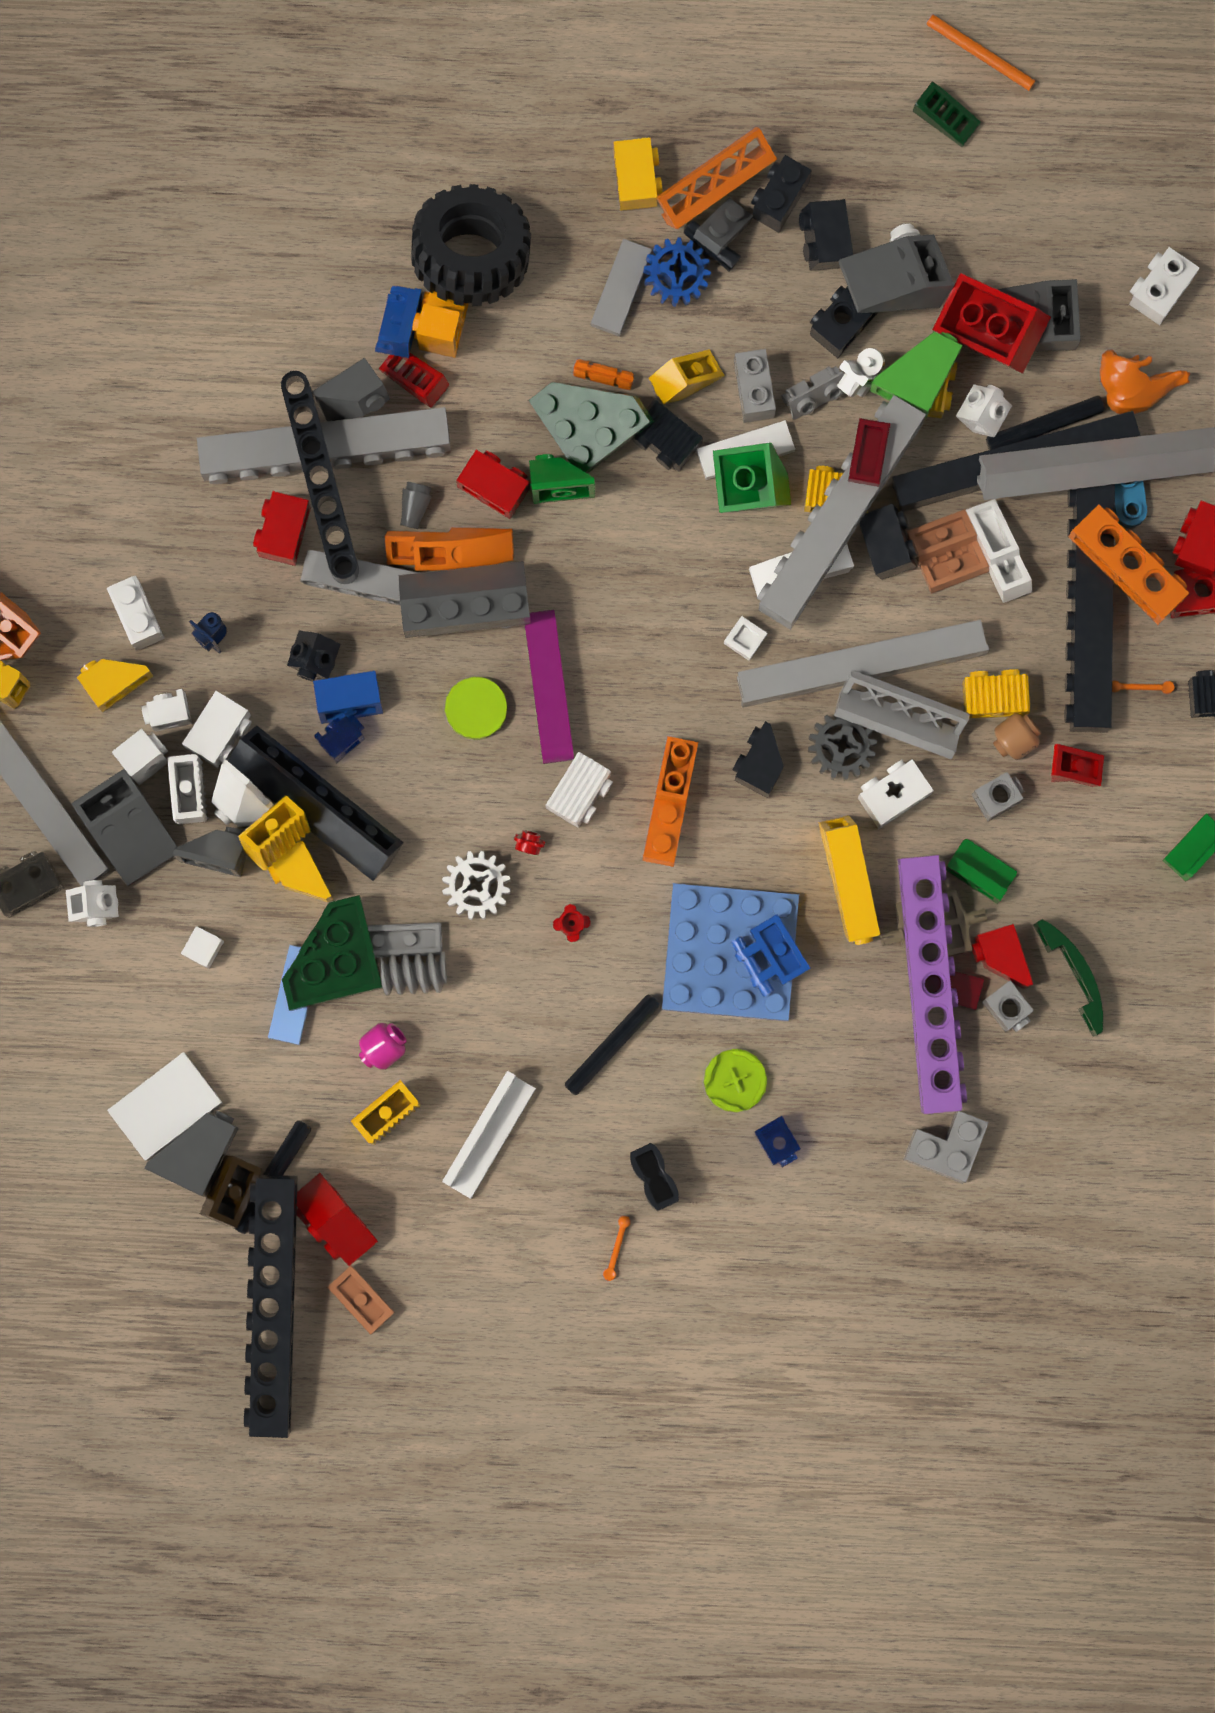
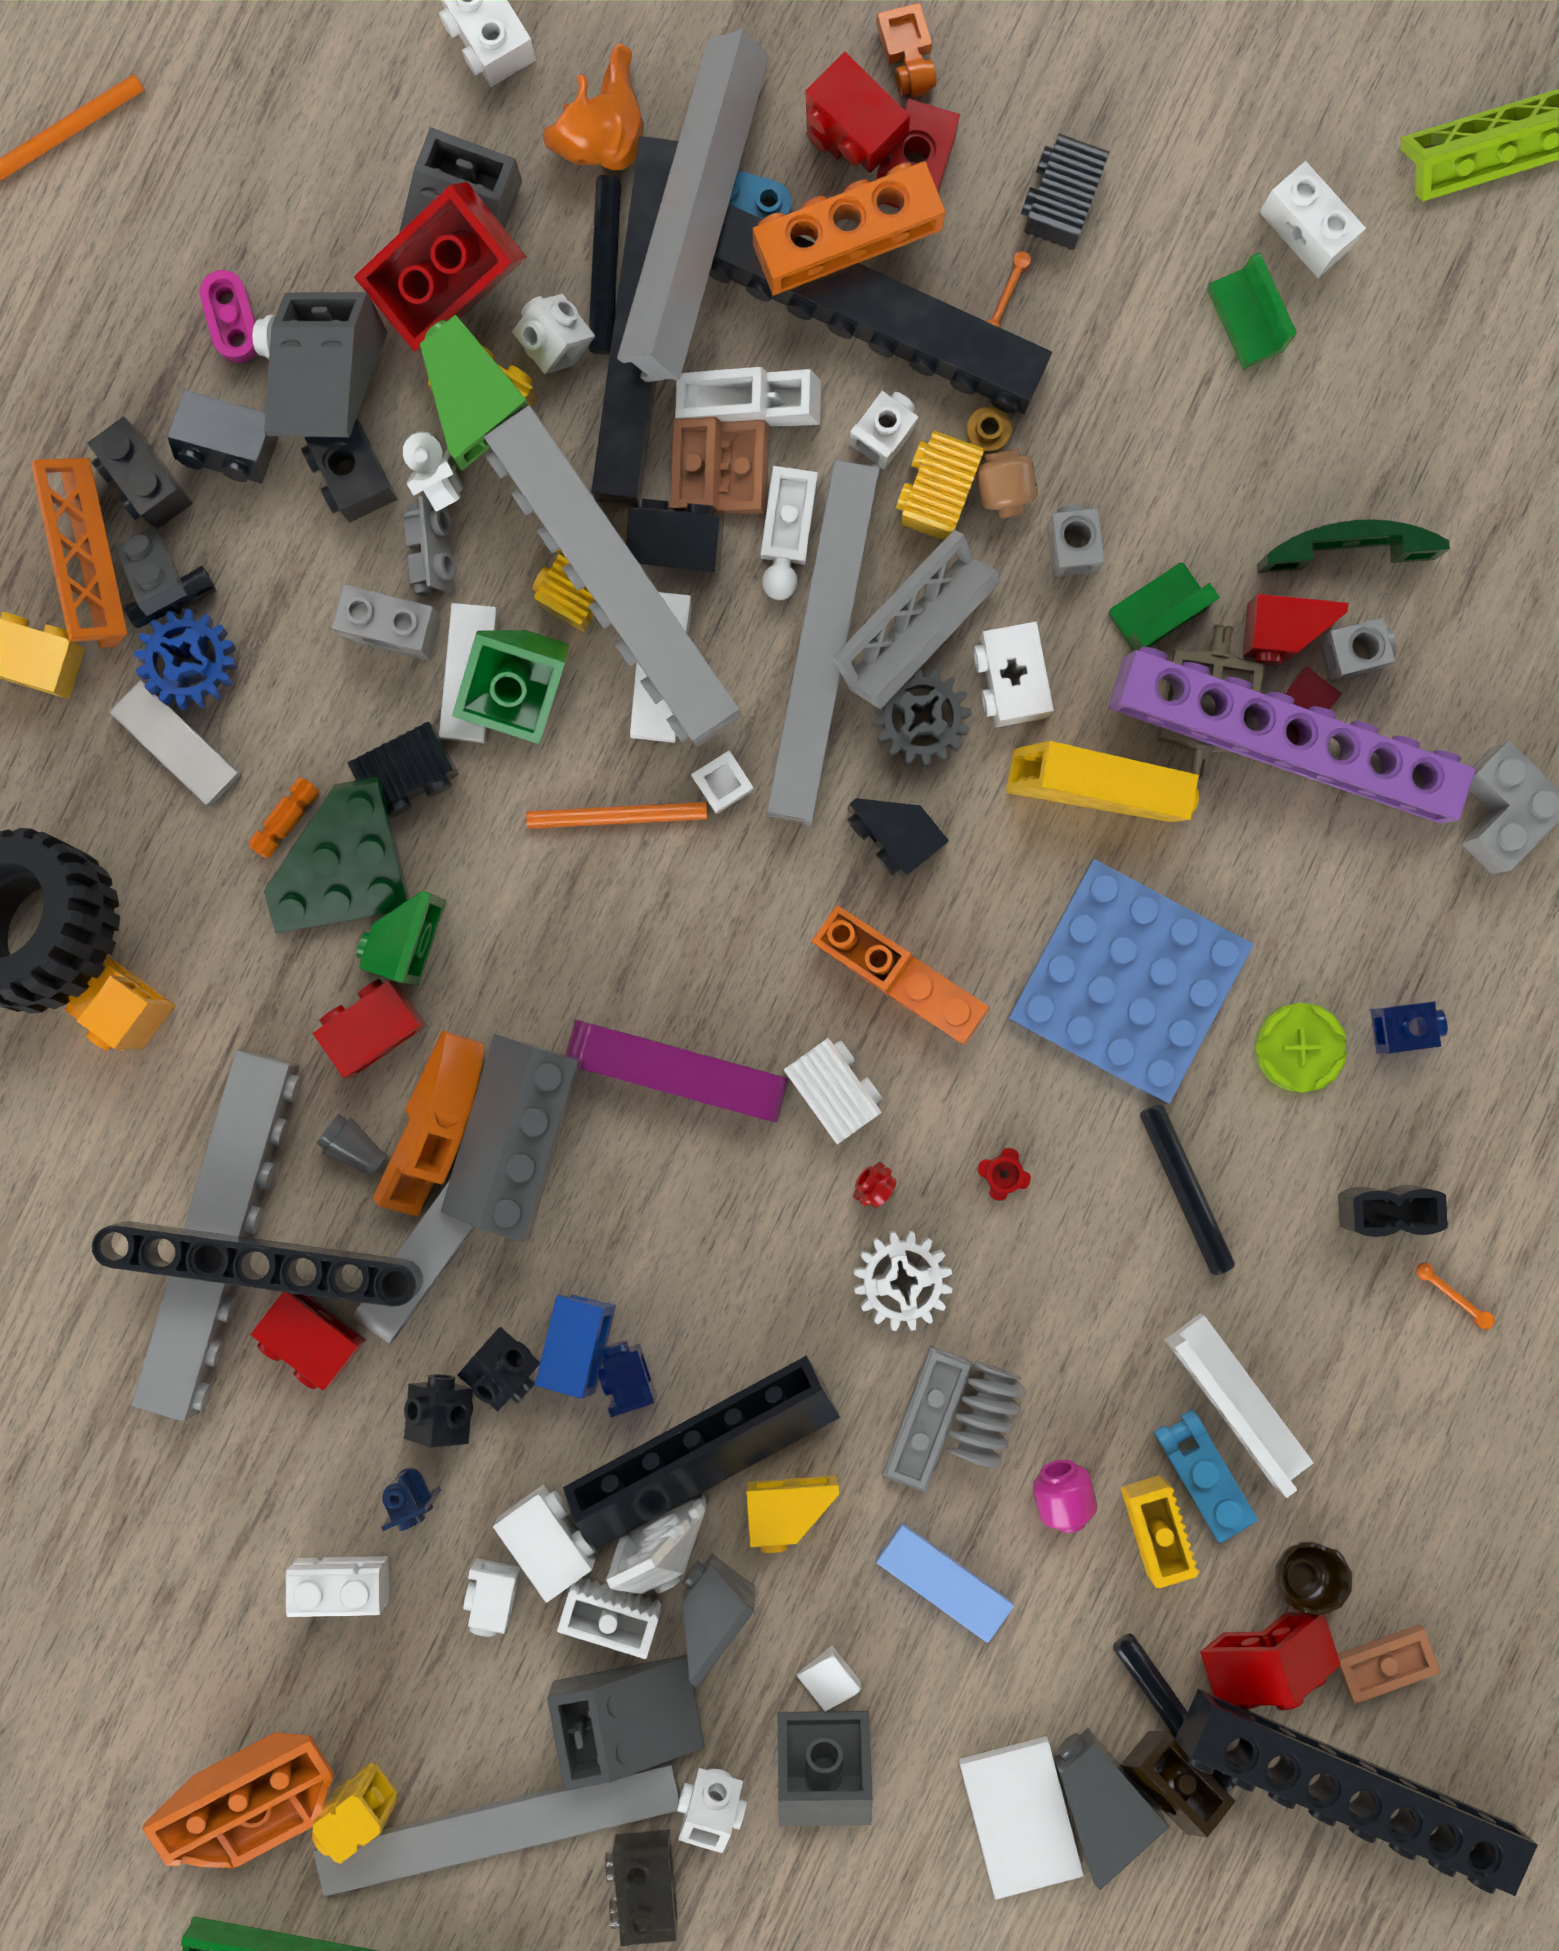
camera: 70 degrees left, 5 degrees up
(111, 680) = (418, 1660): yellow slope -> none
(141, 755) = (538, 1665): white brick -> none
(145, 966) = (824, 1768): none -> dark grey slope
(271, 628) = (438, 1412): none -> black brick
(274, 833) = (724, 1532): yellow brick -> none
(334, 958) = (923, 1513): dark green plate -> none
(351, 393) = (160, 1171): dark grey slope -> none
(396, 1225) = (1313, 1578): none -> dark brown hair
(397, 323) = (106, 1073): blue hinge -> none
(429, 388) = (201, 1057): red slope -> none
(432, 1134) = (1206, 1477): none -> dark azure plate
(476, 708) = (662, 1179): lime tile -> none
(685, 376) = (333, 709): yellow slope -> none
(695, 581) = (616, 815): none -> orange bar
(778, 949) = (1165, 917): blue plate -> none
(869, 452) = (549, 502): dark red tile -> none
(904, 205) = (229, 319): none -> dark pink plate
(926, 610) = (787, 528): none -> white plate
(930, 115) = (108, 201): dark green slope -> none
(1007, 649) = (884, 443): none -> white brick
(1040, 718) = (993, 442): none -> pearl gold plate
(1077, 766) = (1079, 423): red slope -> none

